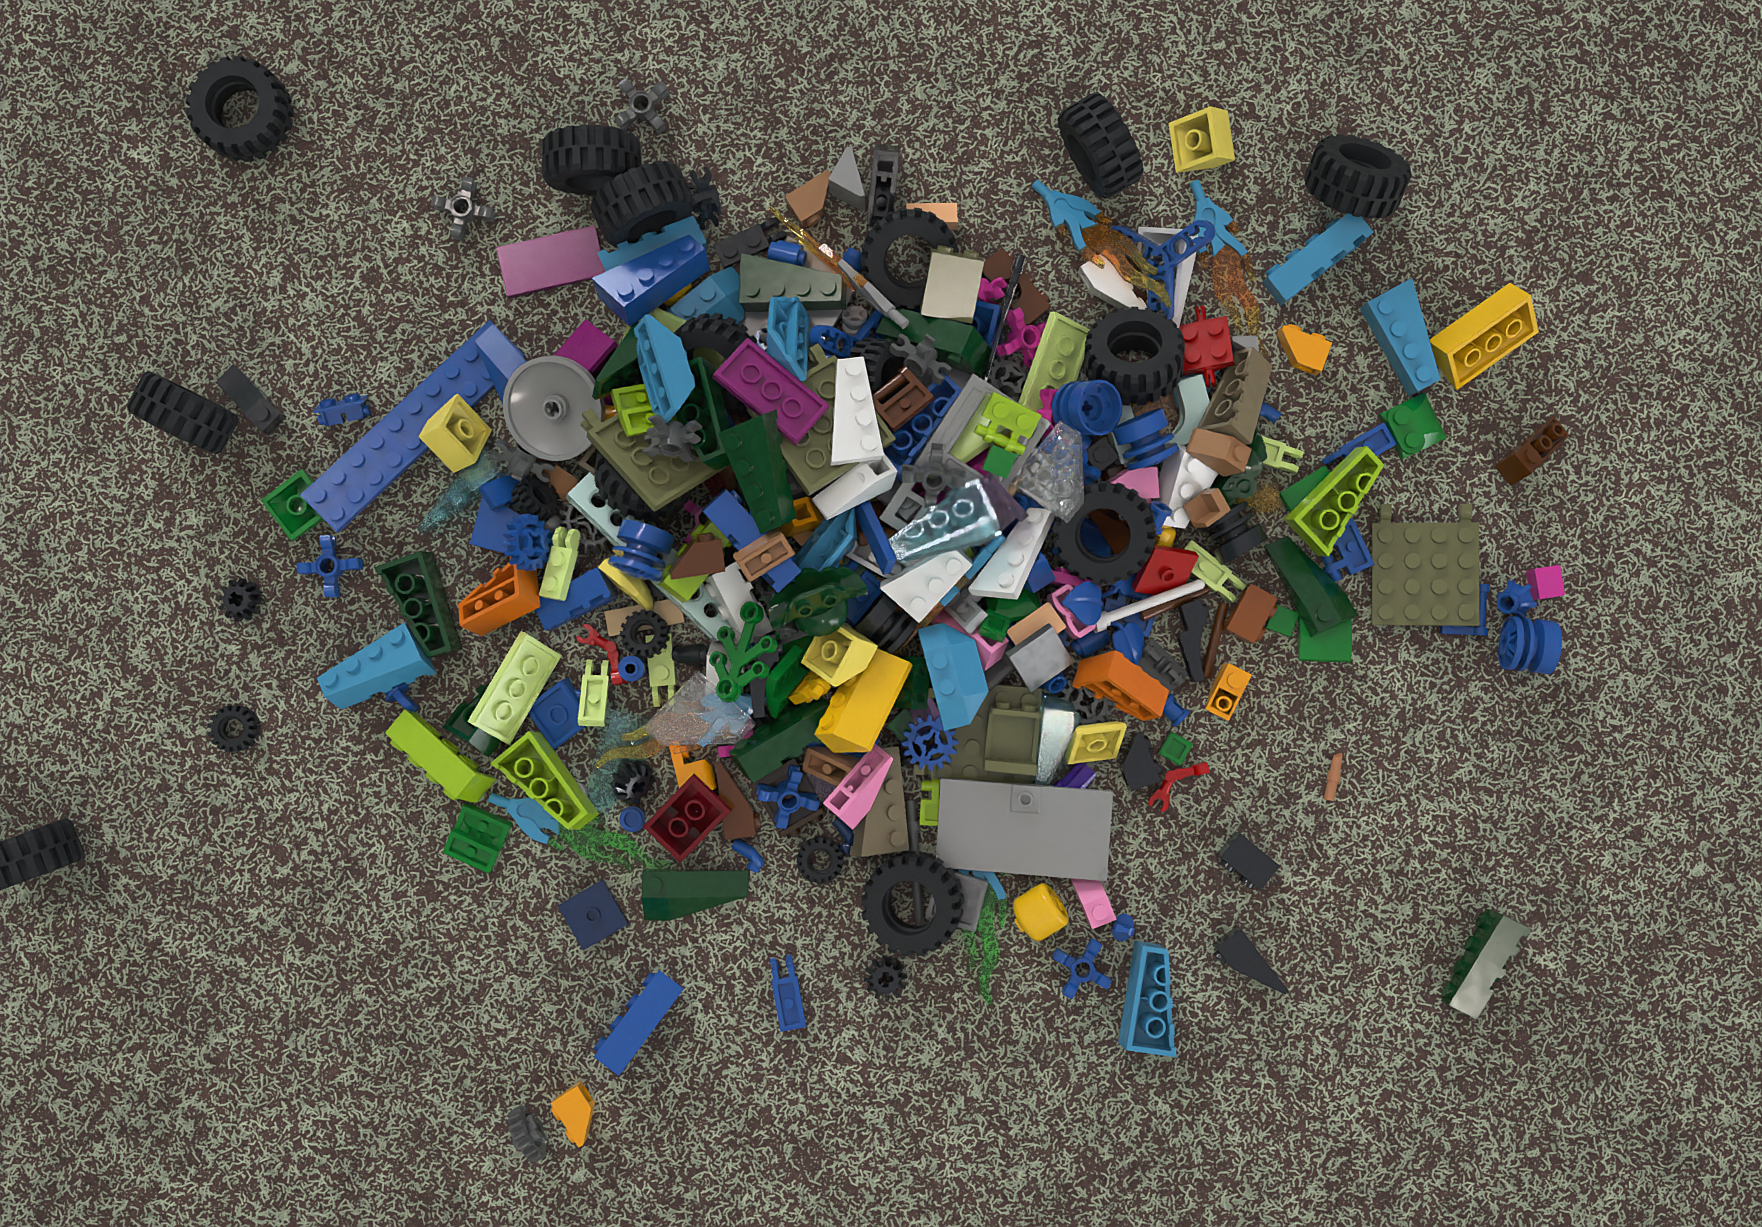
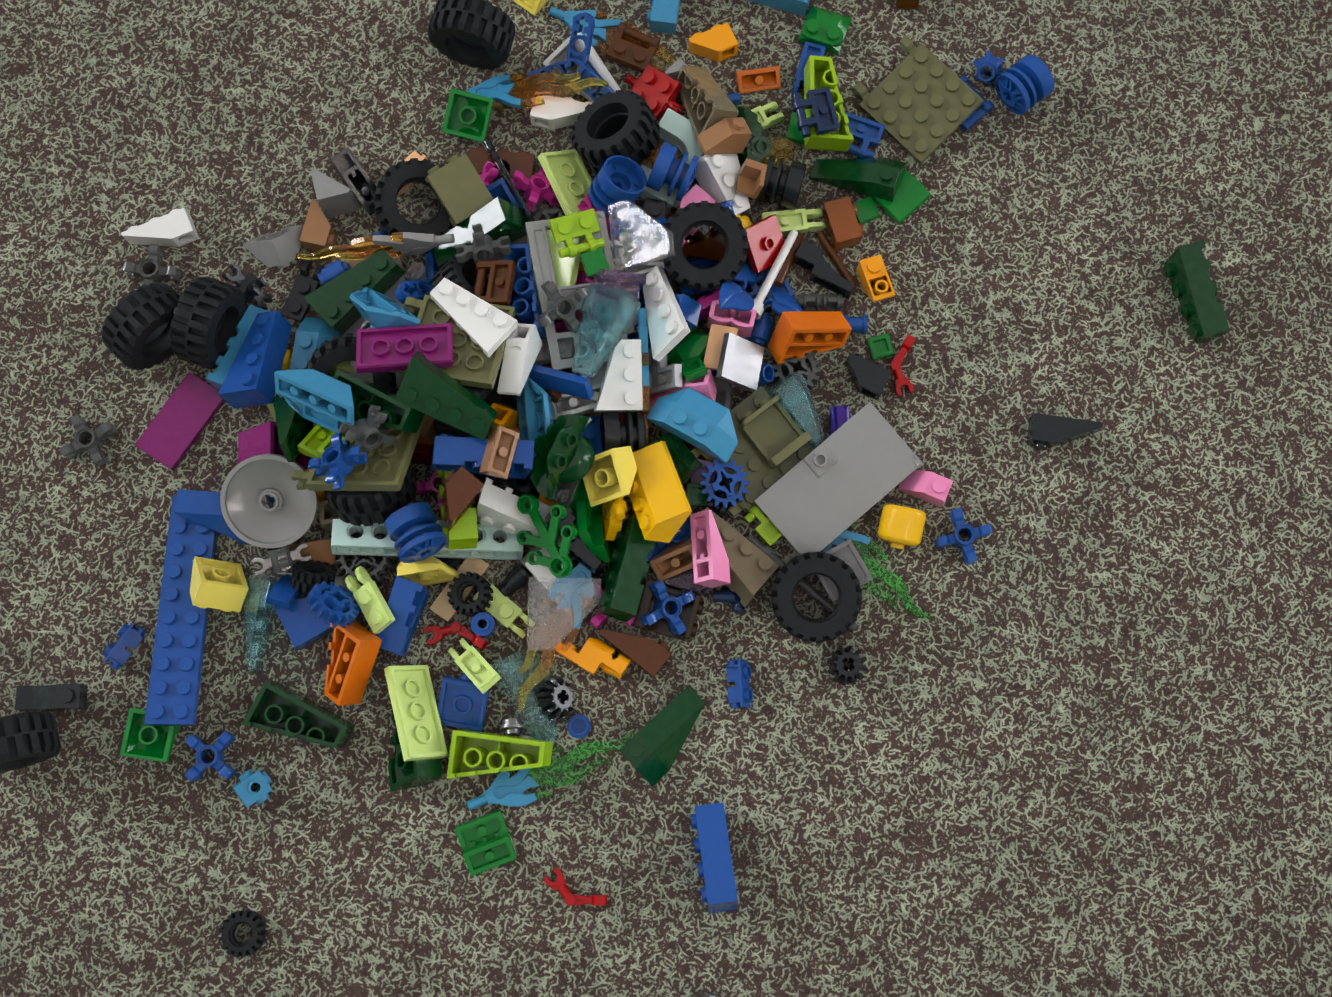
camera: 45 degrees left, 10 degrees down
(249, 601) = (157, 844): black gear -> none
(332, 623) = (243, 787): none -> dark azure brick
(376, 668) = (307, 792): dark azure wedge -> none
(398, 693) = (334, 796): blue piece -> none
(438, 758) = (407, 810): lime wedge -> none
(519, 964) = (569, 898): none -> red piece
(575, 1111) = (731, 961): light orange slope -> none
(580, 769) = (512, 726): none -> flat silver plate
(593, 914) = (614, 816): dark blue plate -> none
(627, 439) = (337, 461): none -> blue pin
(687, 818) = (614, 683): dark red slope -> none
(691, 83) = (168, 230): none -> white slope
(749, 852) = (679, 671): blue arm -> none
(763, 183) = (278, 247): none -> light grey slope
(780, 917) = (739, 672): none -> blue hinge
(787, 996) = (796, 741): blue hinge -> none
(809, 871) = (739, 621): black tyre -> none
(1028, 216) = (467, 115): none -> green slope
(1095, 742) = (828, 384): light yellow slope -> none
(1123, 927) = (962, 485): blue piece -> none
(1148, 1004) = (1025, 515): dark azure wedge -> none
(1221, 287) = (629, 53): none -> reddish brown plate
(1247, 860) = (994, 370): black brick -> none
(1310, 416) = (758, 79): none -> orange slope
(1325, 507) = (822, 111): none -> dark blue plate
(1333, 777) = (993, 273): nougat piece -> none
(1545, 582) = (995, 41): dark pink panel -> none

